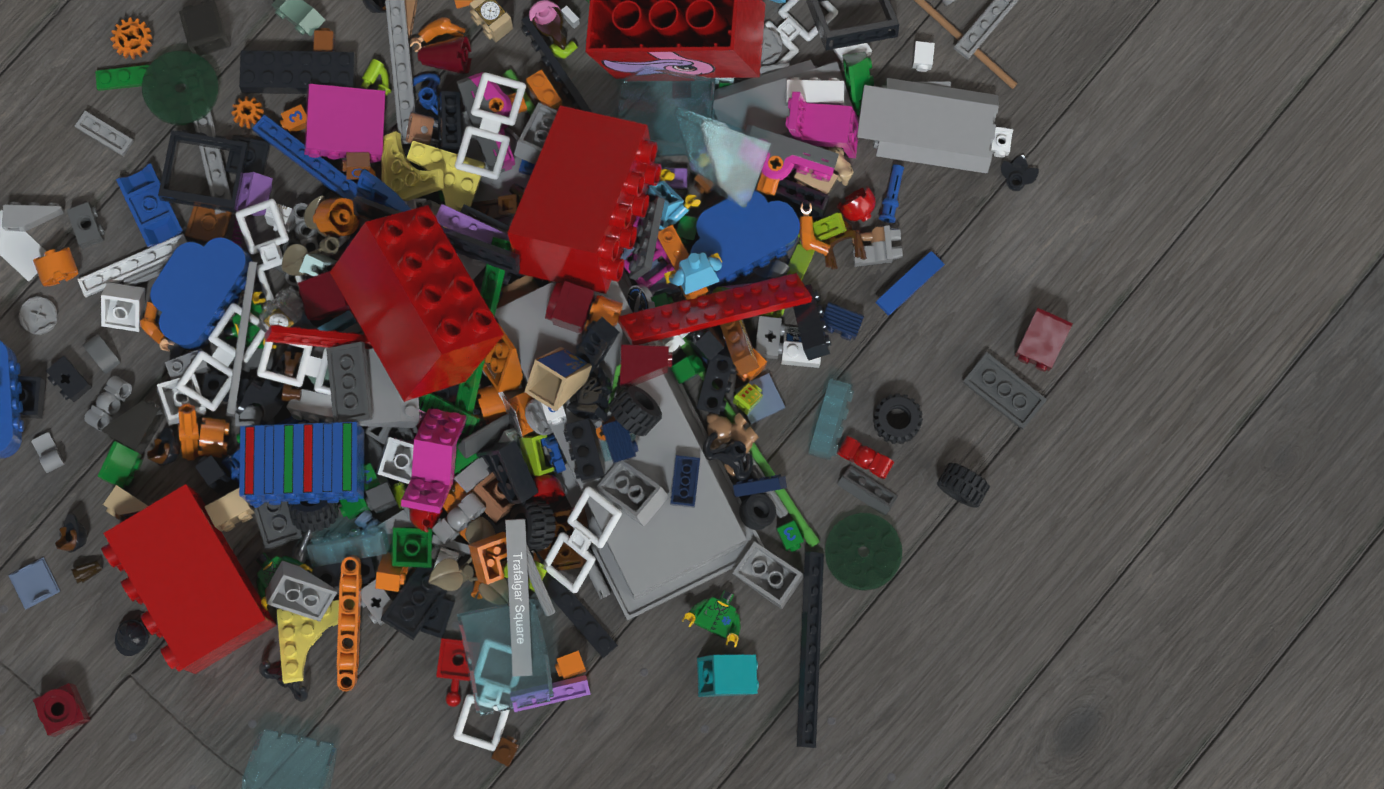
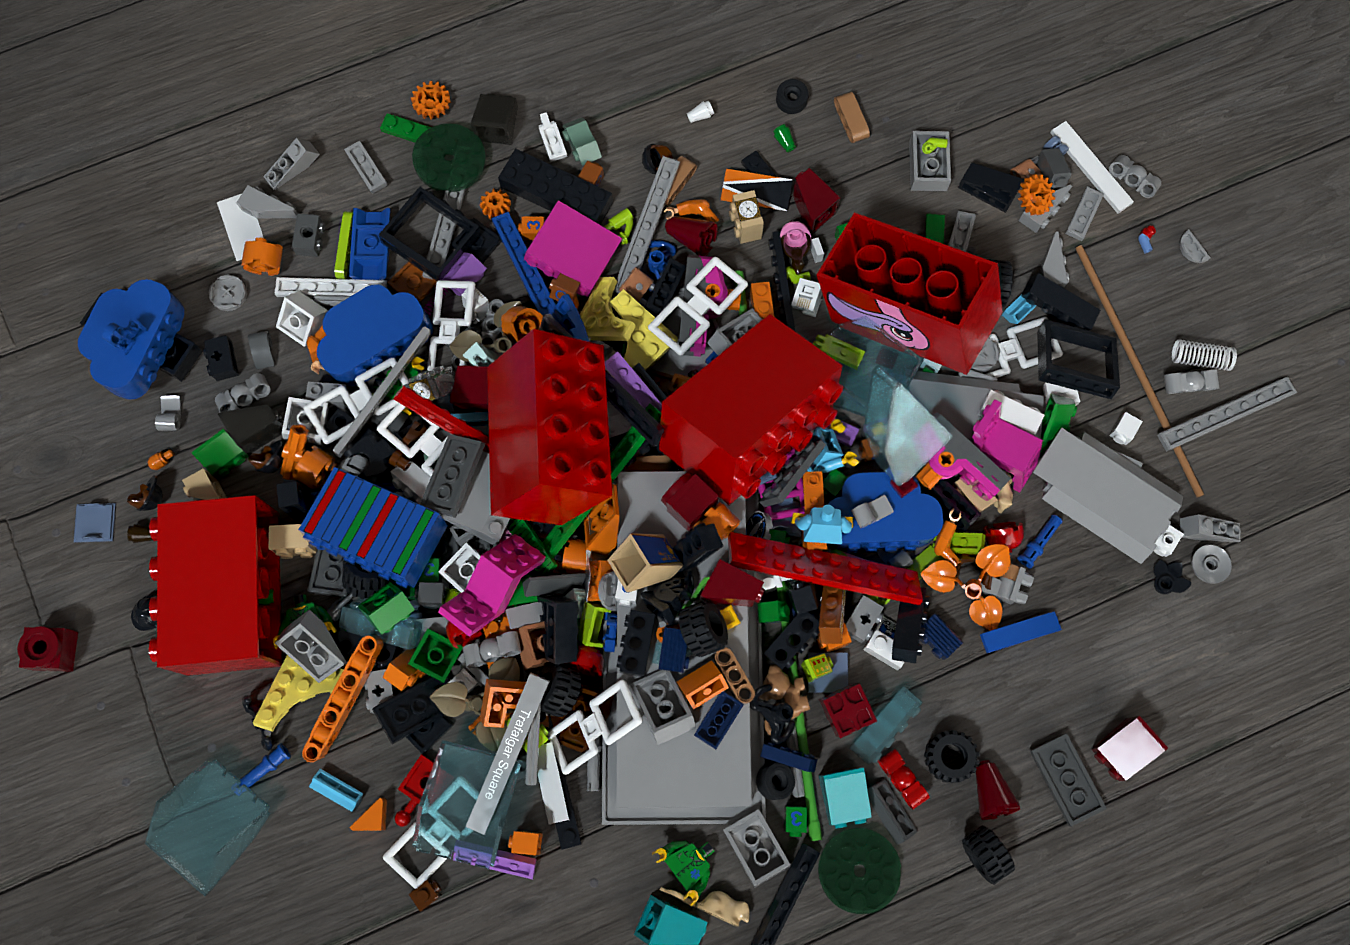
camera: 30 degrees right, 5 degrees down
(30, 163) = (291, 163): none -> light grey slope
(63, 498) = (160, 459): none -> orange cylinder
(125, 218) = (344, 246): none -> lime beam
(267, 23) = (551, 139): none -> white hinge
(311, 710) = (268, 764): none -> blue pin
(348, 526) = (386, 608): none -> green slope
(383, 703) = (336, 790): none -> medium azure piece
(427, 712) = (373, 819): none -> orange slope
(568, 609) = (551, 785): none -> white sticker
(582, 67) = (807, 297): none -> white piece
(635, 104) = (839, 350): none -> lime hinge
(653, 390) = (730, 617): none -> yellow tile
(657, 458) = (702, 684): none -> orange brick
(676, 429) = (735, 686): none -> medium nougat beam
(733, 239) = (871, 512): none -> light grey panel
(752, 205) = (905, 488): none -> dark red tile
(758, 638) = (718, 905): none -> tan animal
(791, 421) = (847, 710): none -> dark red piece
(823, 496) = (845, 797): none -> slope
(855, 232) = (987, 610): none -> orange plant
(946, 432) = (993, 792): none -> dark red cone
(1034, 113) = (1209, 529): none -> light grey slope
(1052, 136) = (1219, 561): none -> light grey dish

